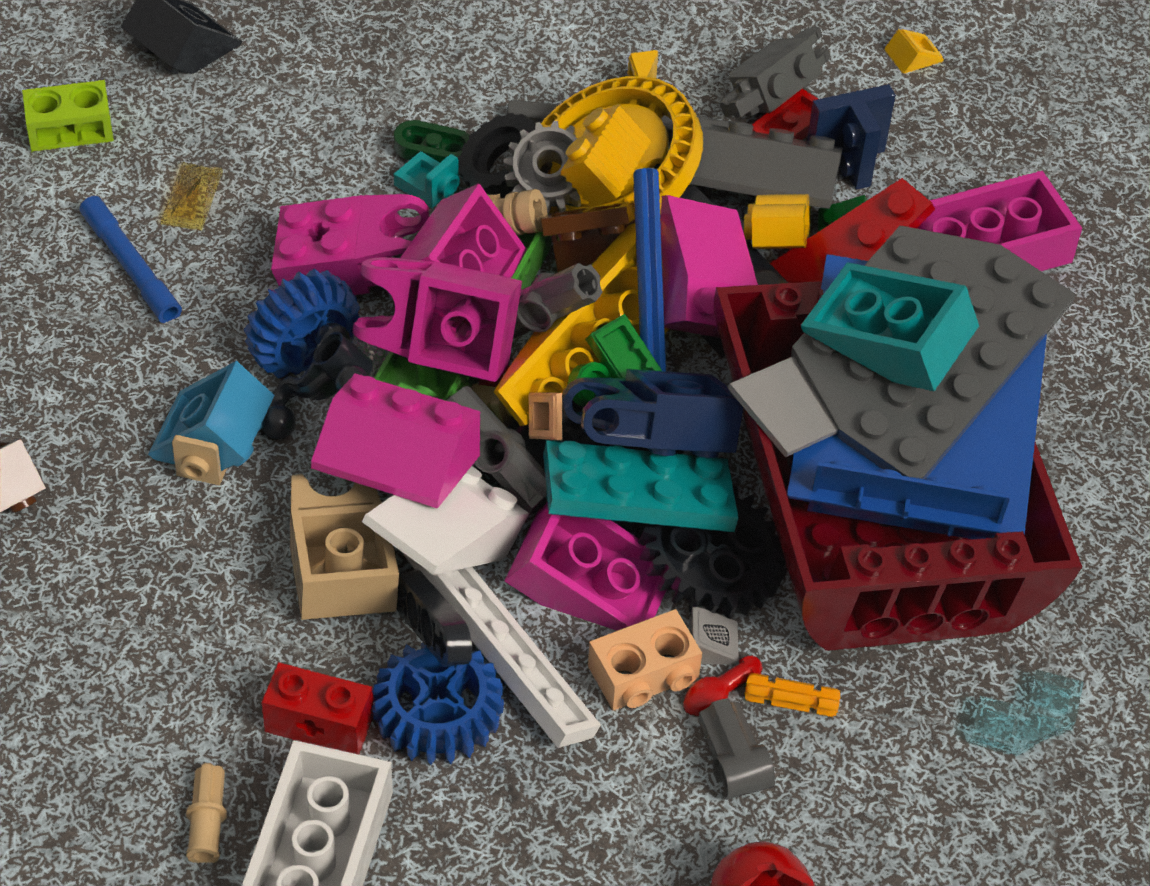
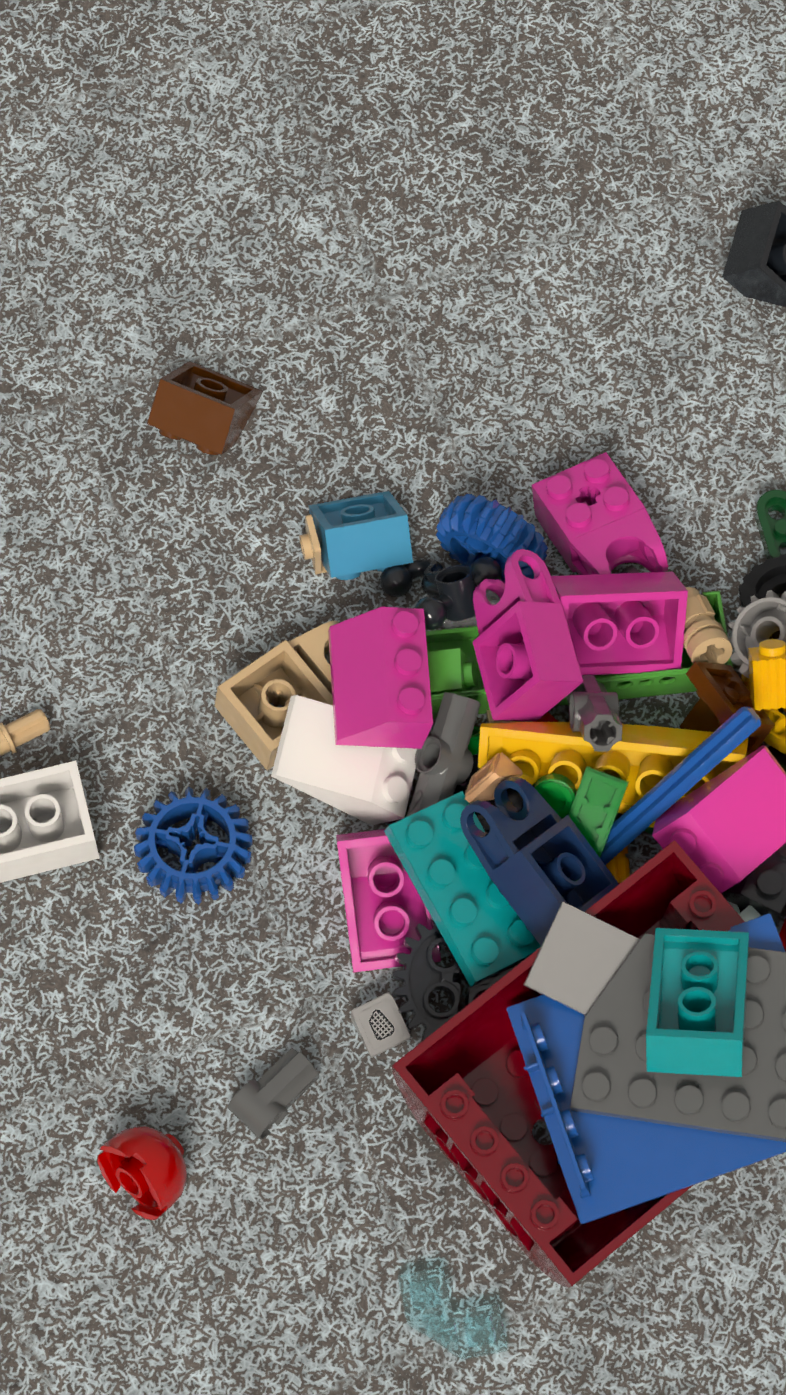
camera: 65 degrees right, 15 degrees up
(67, 115) = (610, 238): lime brick -> none
(152, 289) = (477, 408): blue piece -> none
(192, 196) = (602, 377): clear yellow slope -> none
(317, 709) = (132, 763): red brick -> none
(429, 178) = (735, 547): teal bracket -> none
(433, 619) = (235, 806): black beam -> none
(515, 657) = (266, 883): white plate -> none
(640, 652) = (328, 974): light nougat brick -> none
(713, 688) = (329, 1050): red piece -> none
(792, 694) = (360, 1114): light orange axle -> none

